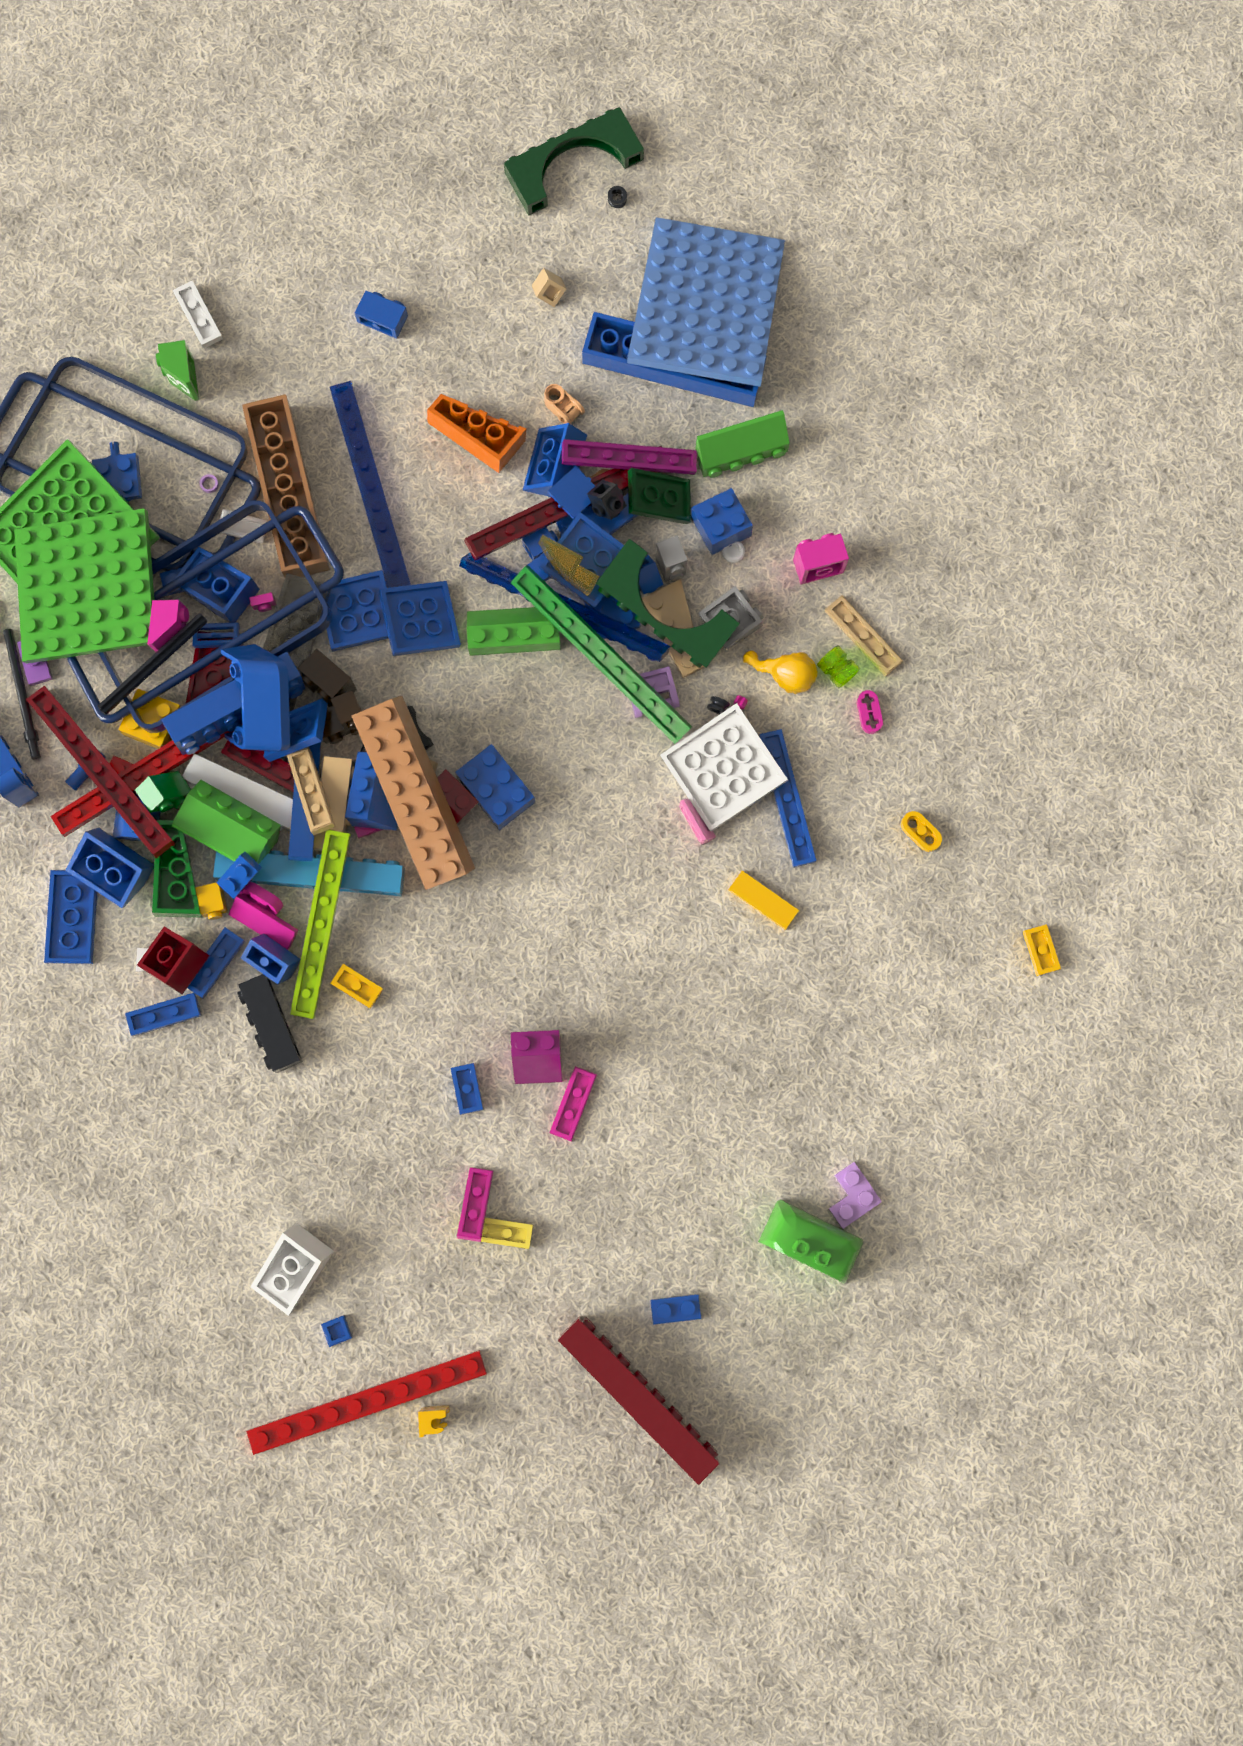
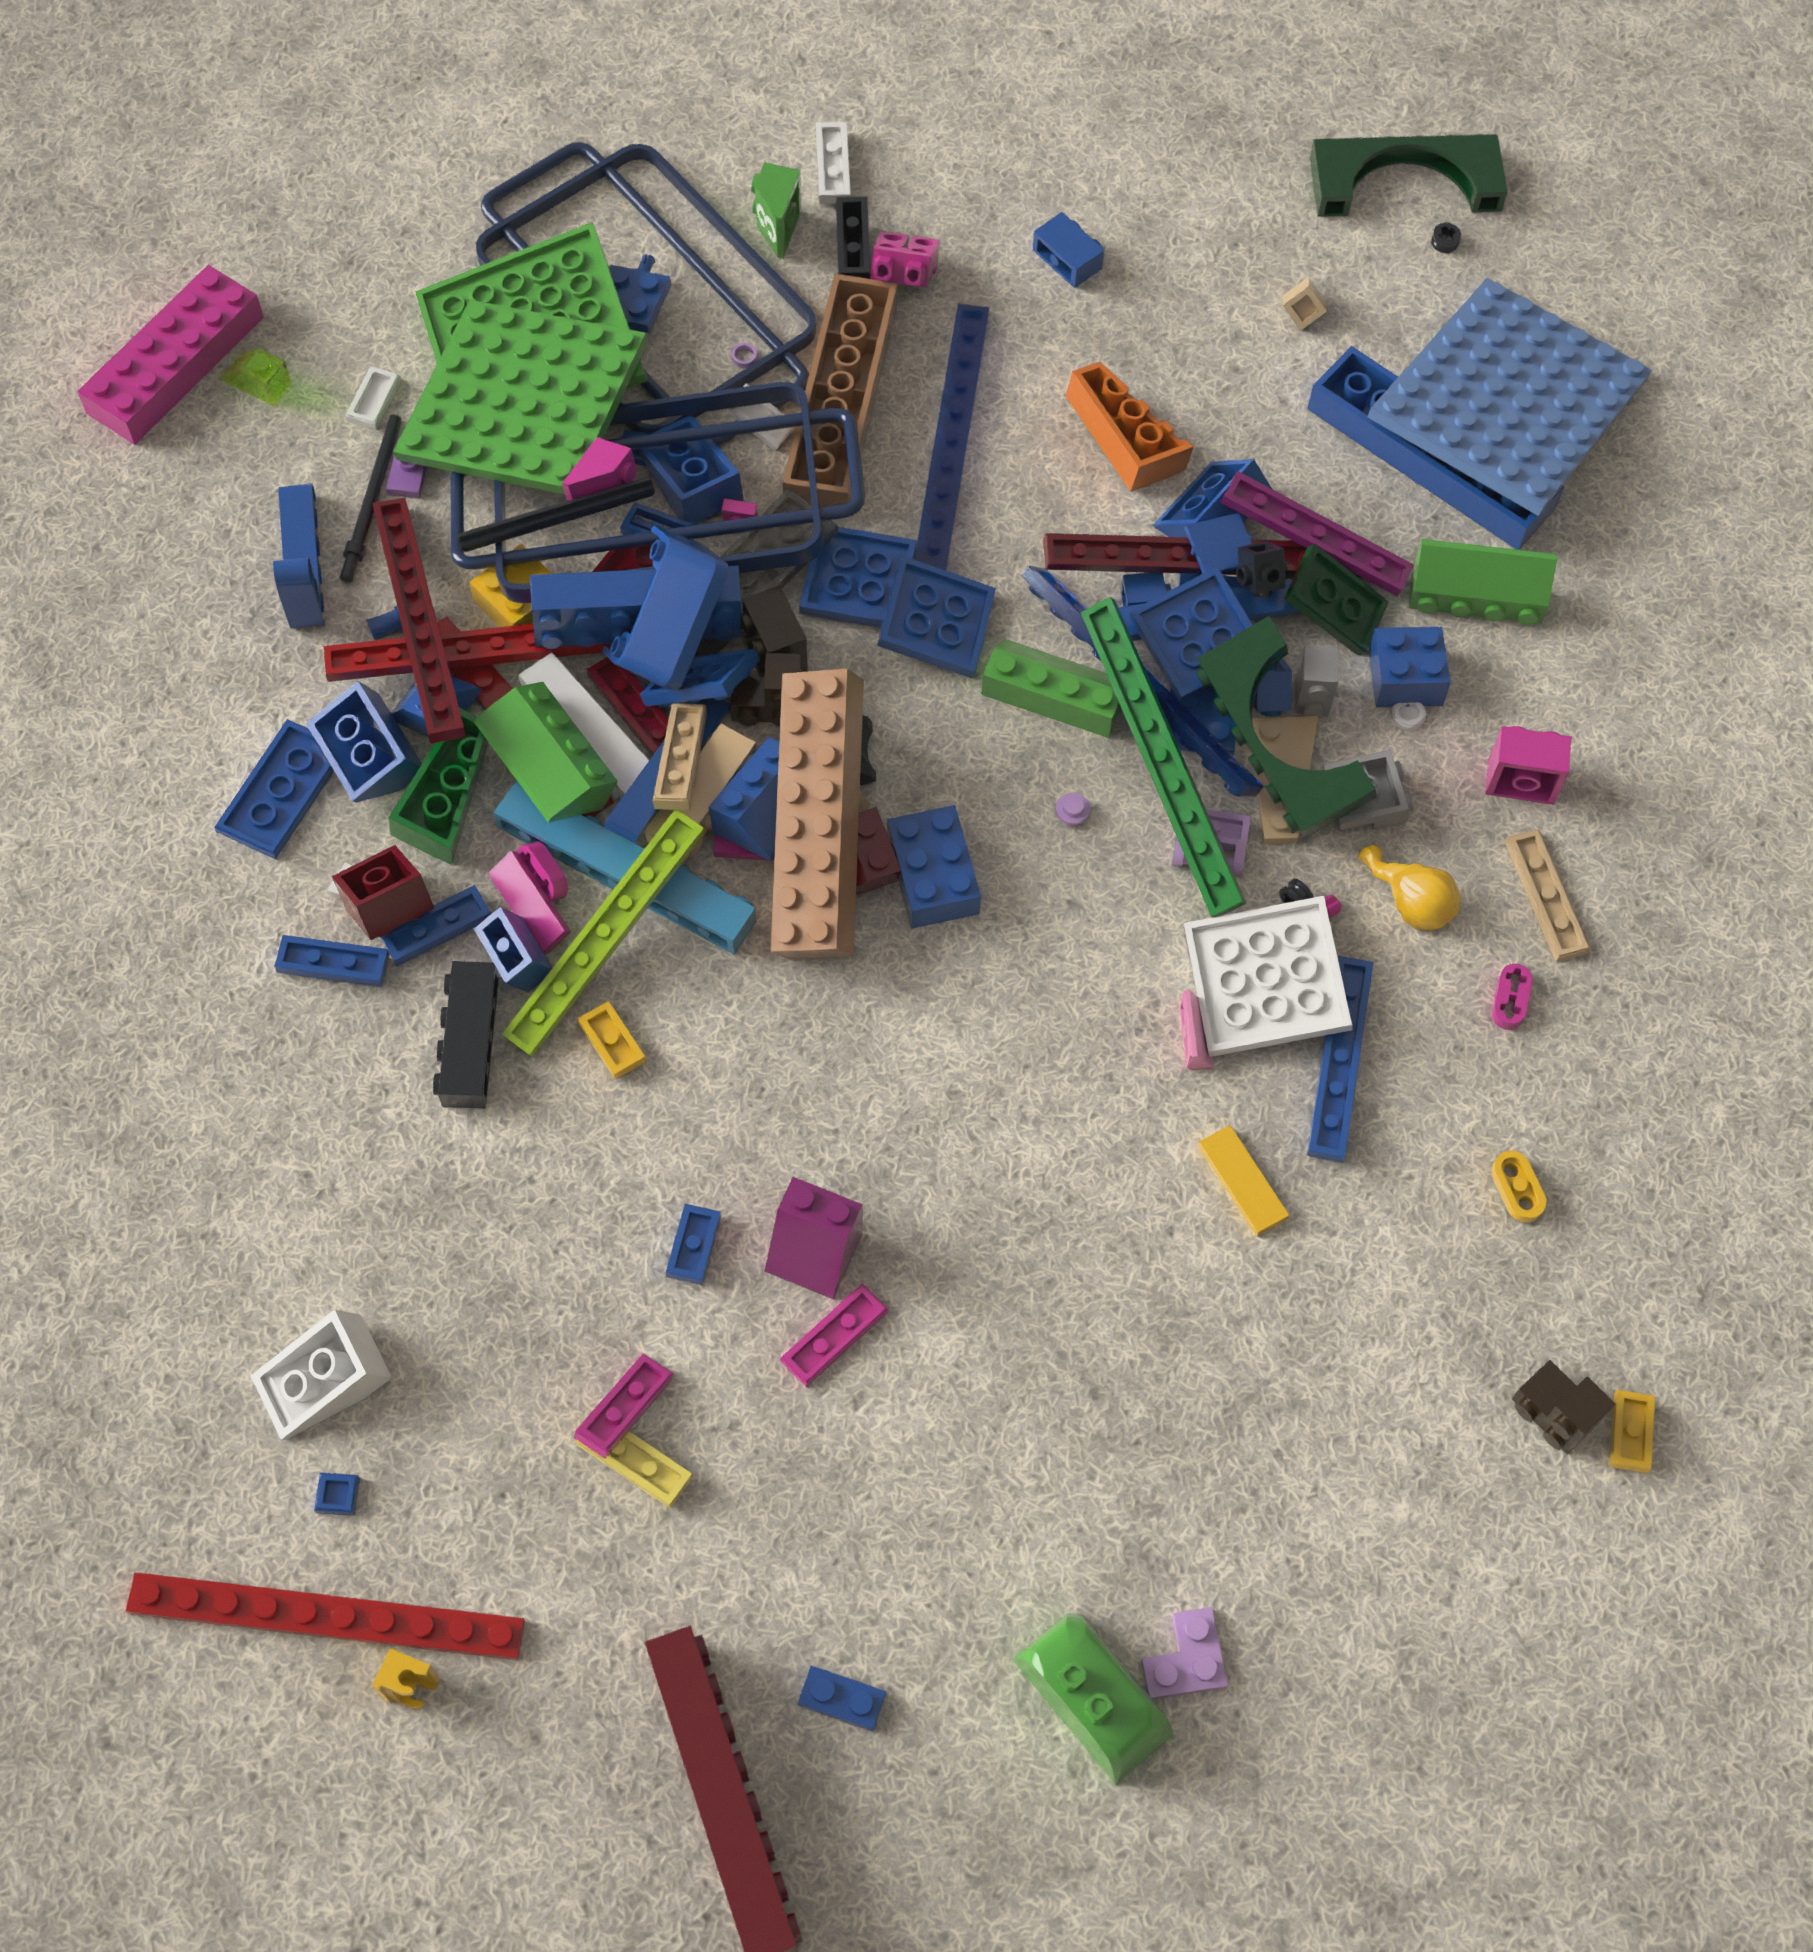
camera: 25 degrees right, 15 degrees down
(163, 791) = (483, 672): green brick -> none
(211, 901) = (475, 844): yellow brick -> none
(239, 875) = (528, 819): blue plate -> none
(240, 371) = (853, 236): none -> black brick
(282, 377) = (904, 264): none -> dark pink hips
(560, 708) = (1073, 809): none -> lavender plate
(566, 407) = (1259, 443): light nougat piece -> none
(568, 565) = (1170, 623): clear yellow slope -> none
(838, 666) = (1490, 912): clear neon green wheel -> none
(1002, 957) = (1561, 1407): none -> dark brown brick

